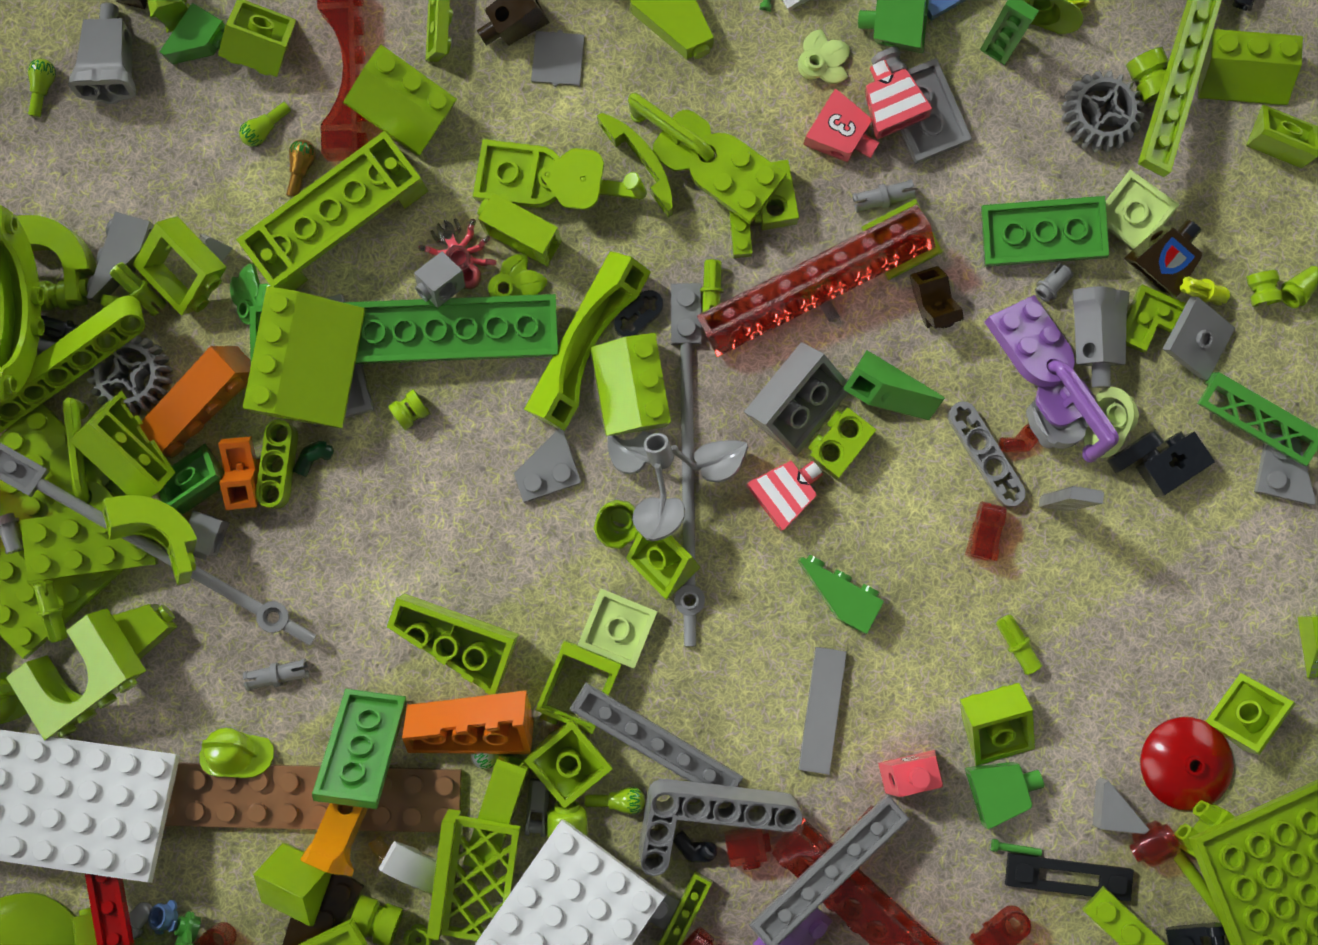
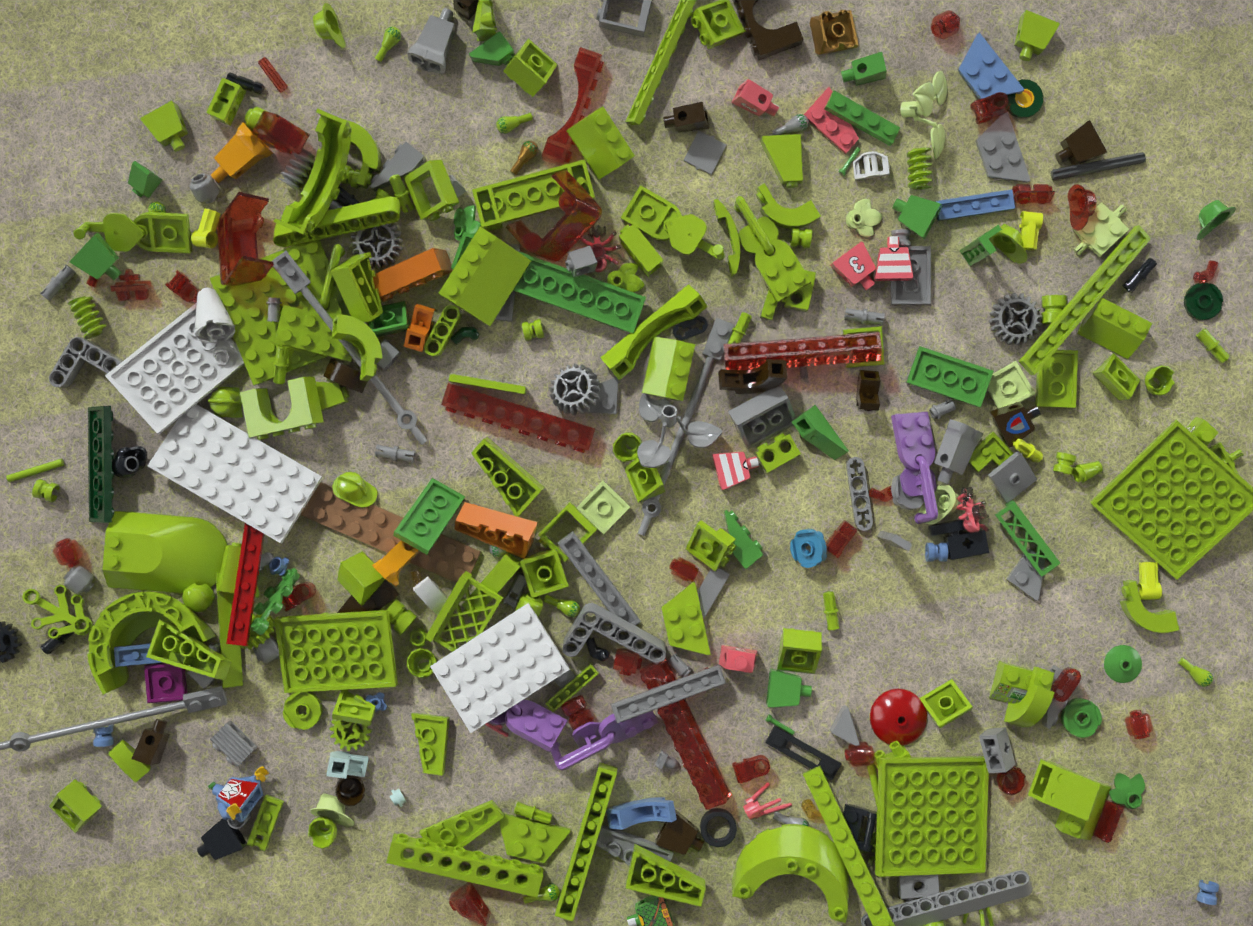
camera: 20 degrees right, 5 degrees up
(156, 589) = (345, 376): none -> dark brown brick
(329, 548) = (454, 393): none -> clear red brick
(373, 515) = (487, 384): none -> lime tile
(402, 239) = (579, 217): none -> clear red windscreen
(507, 487) = (567, 401): none -> light grey gear
(711, 100) = (786, 217): none -> lime arch
(746, 120) = (801, 237): none -> lime wheel
(767, 349) = (756, 380): none -> dark brown arch
(775, 672) = (683, 569): none -> clear red brick
(801, 619) = (711, 545): none -> lime plate
(810, 749) = (685, 621): none -> lime wing
(828, 820) = (679, 665): none -> light grey pin
(960, 556) = (817, 544): none -> dark azure plate
(1136, 493) = (936, 552): none -> medium blue wheel
(1166, 412) = (973, 511): none -> animal
(1203, 175) = (1058, 380): none -> lime plate

